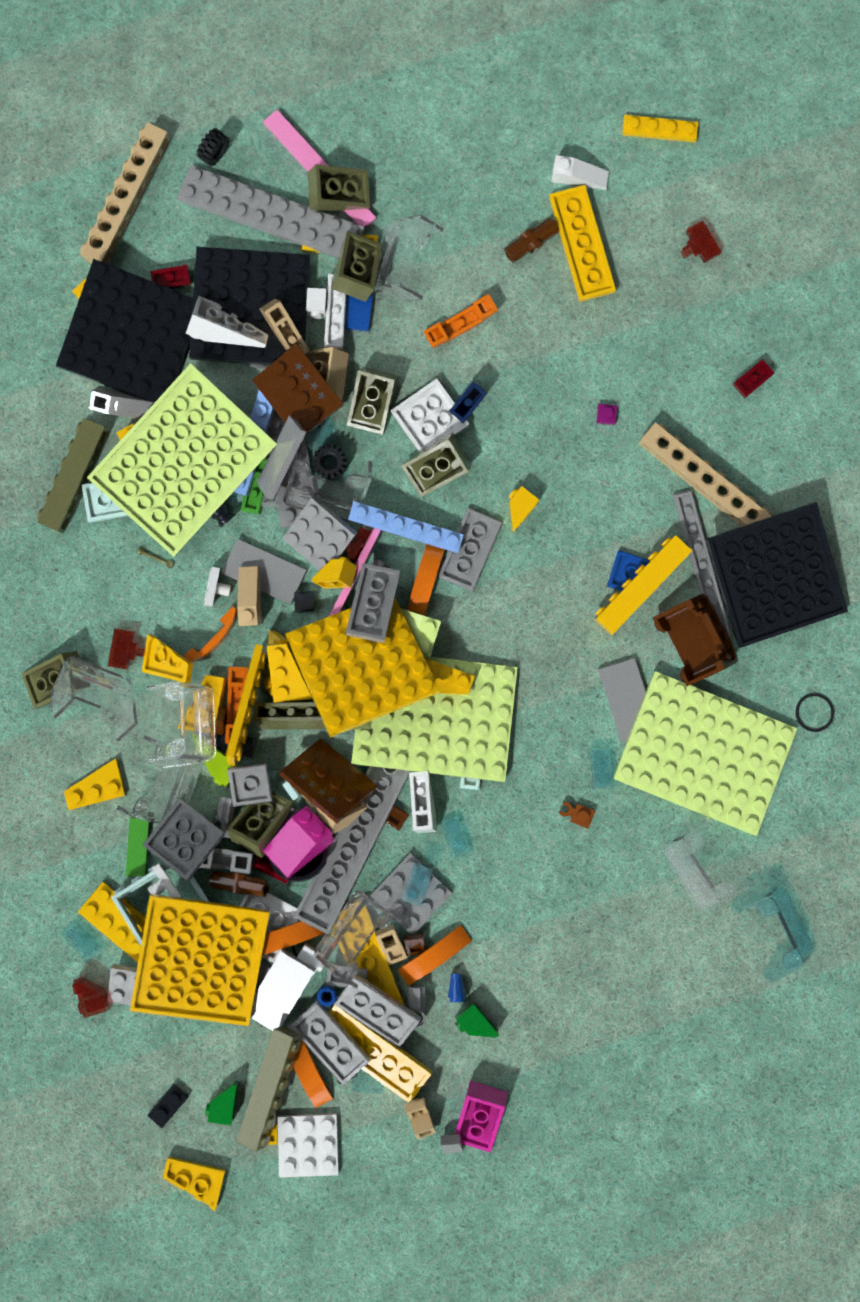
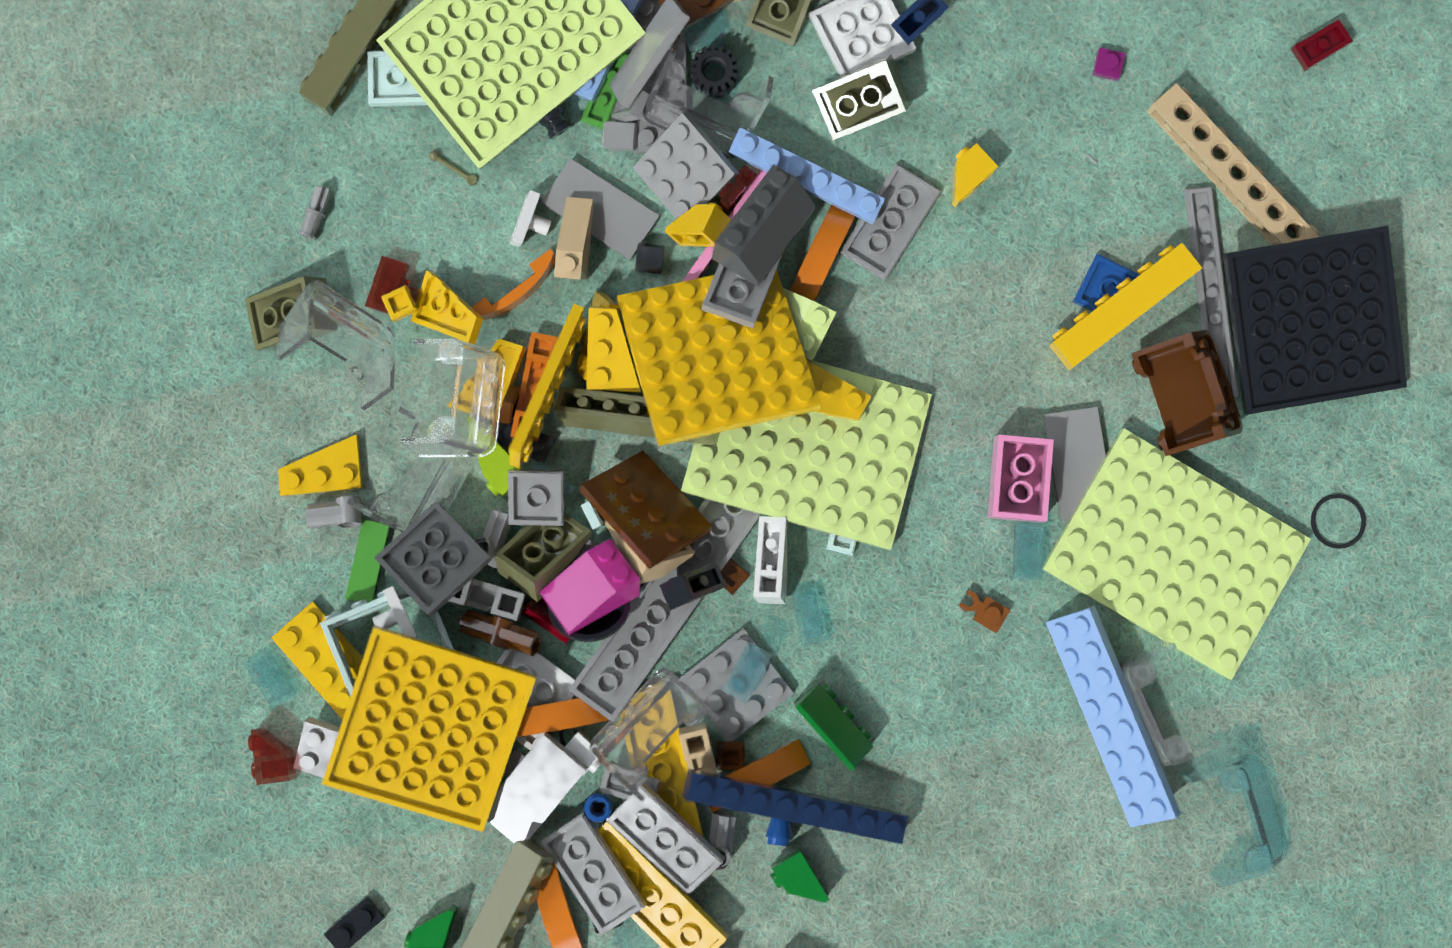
camera: 15 degrees right, 0 degrees up
(61, 604) = (315, 212): none -> light grey axle
(108, 817) = (334, 513): none -> light grey piece
(132, 661) = (399, 303): none -> yellow tile
(269, 518) = (619, 136): none -> light grey slope
(369, 829) = (692, 585): none -> black slope
(381, 569) = (764, 226): none -> dark grey slope
(464, 973) = (794, 806): none -> dark blue brick
(484, 911) = (834, 725): none -> green slope
(588, 718) = (1020, 478): none -> bright pink brick
(677, 875) = (1113, 717): none -> light blue plate

